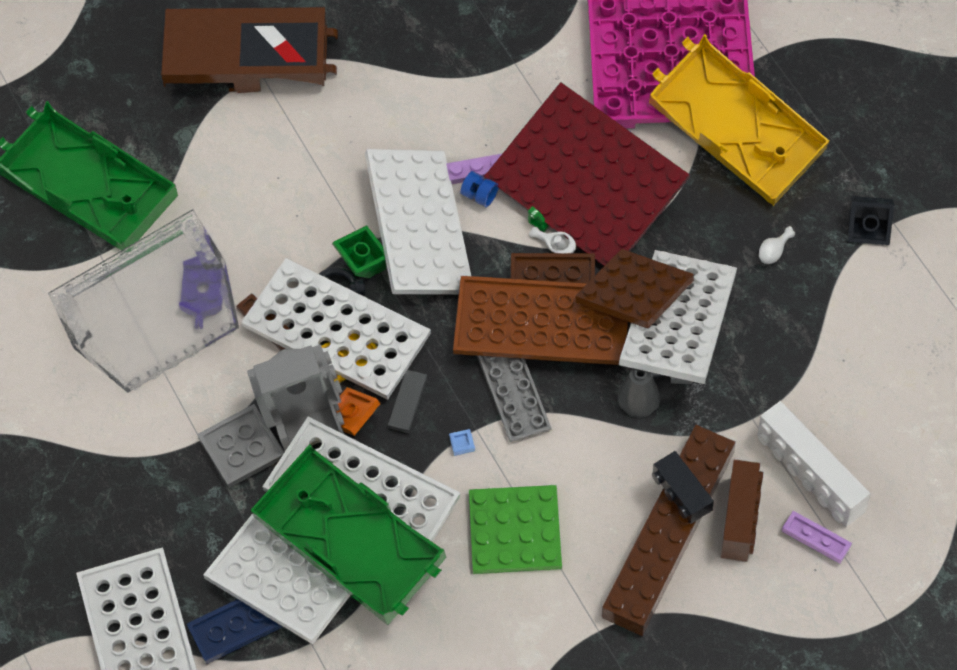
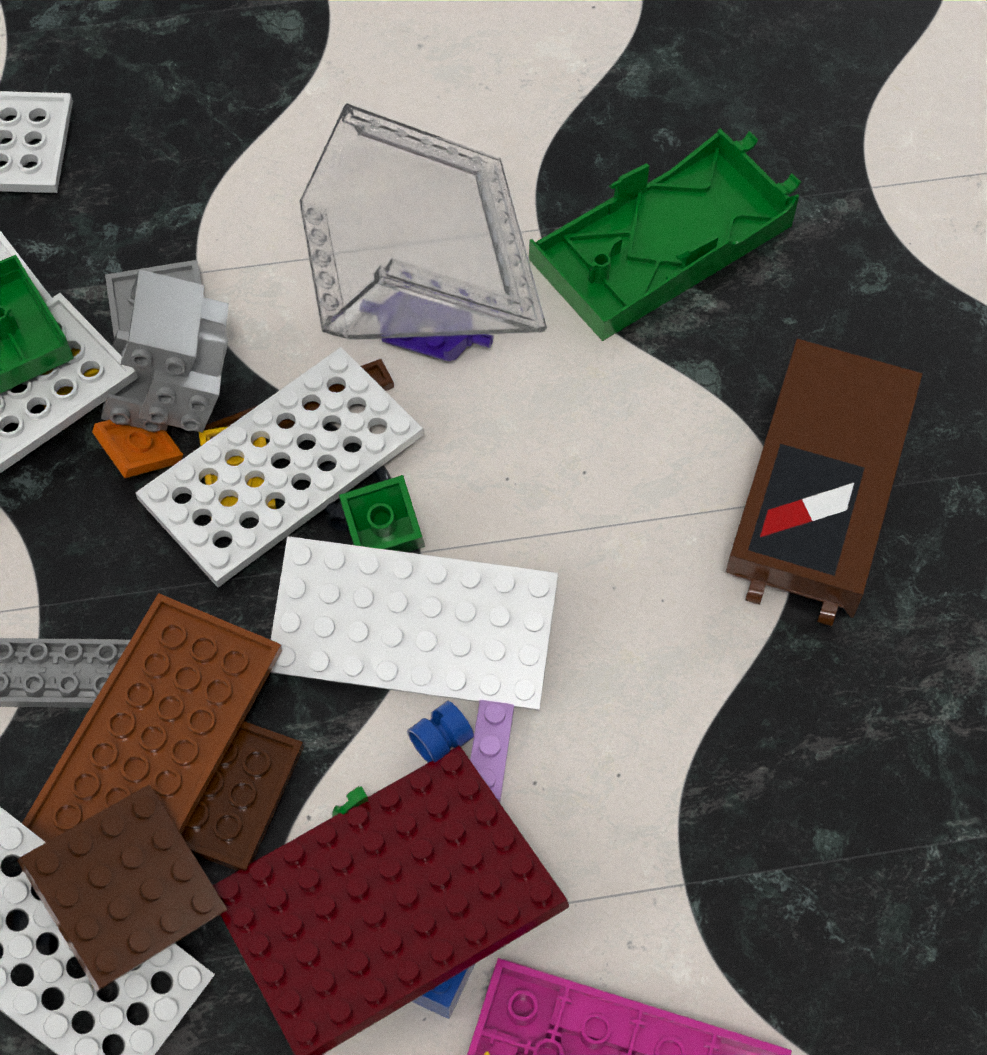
camera: 105 degrees right, 0 degrees up
(407, 401) = (126, 527): dark grey tile -> none
(462, 442) = (25, 577): light blue tile -> none
(555, 241) = (296, 821): white piece -> none

